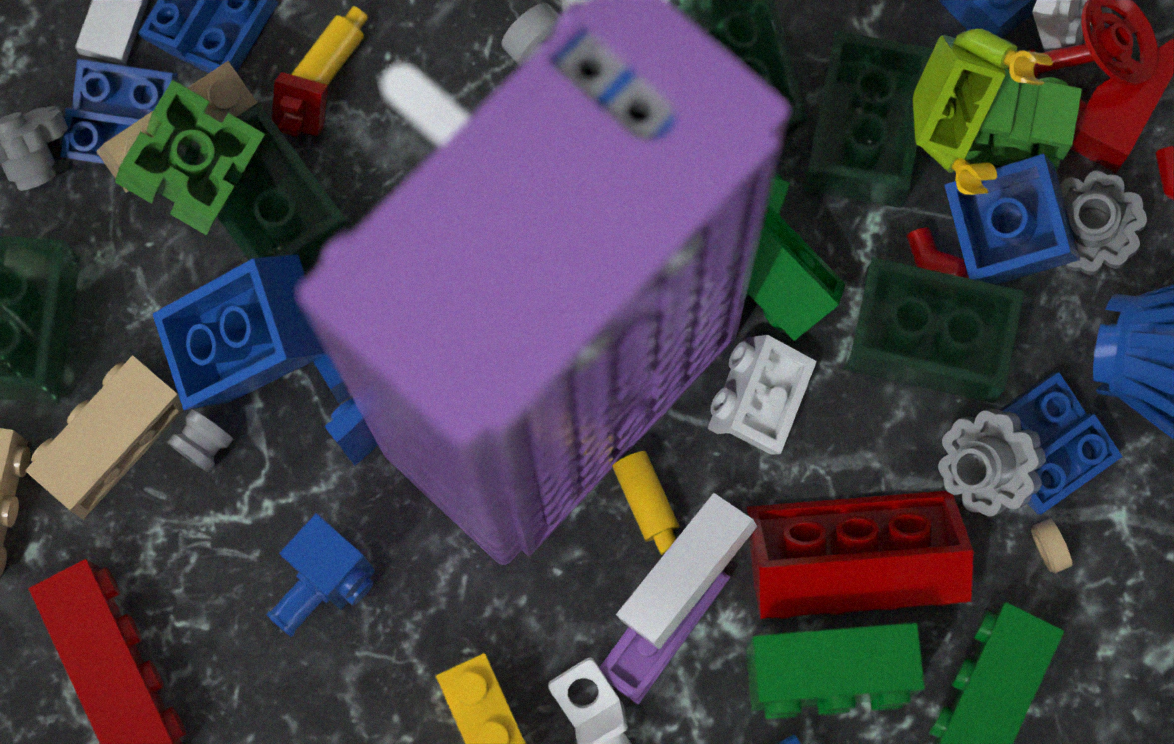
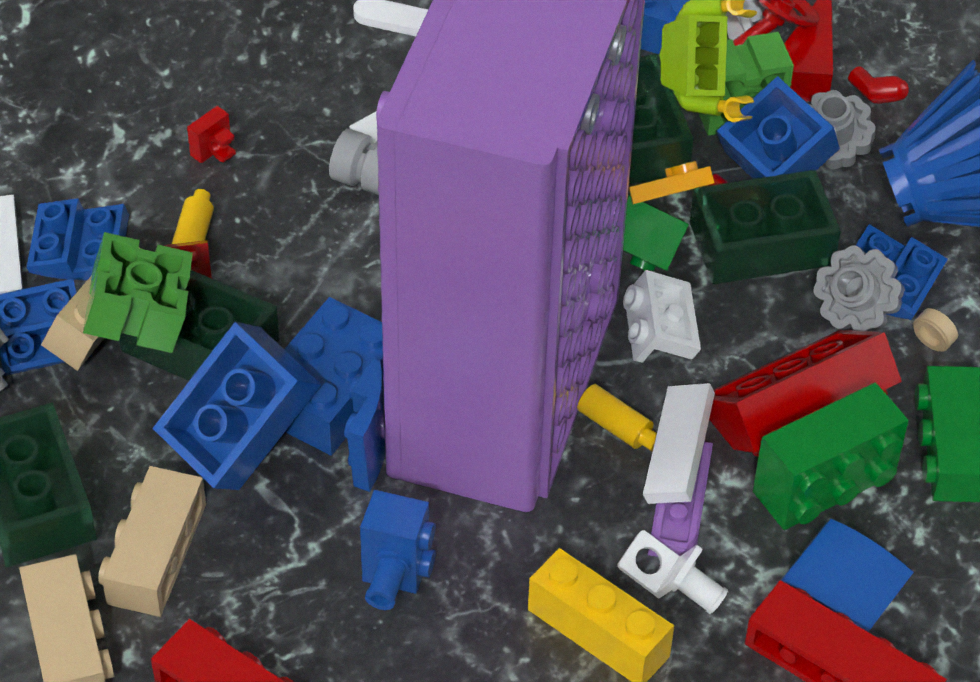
camera: 30 degrees left, 25 degrees down
(200, 440) = (235, 513): light grey wheel -> none
(842, 254) = (678, 179): none -> light orange wing

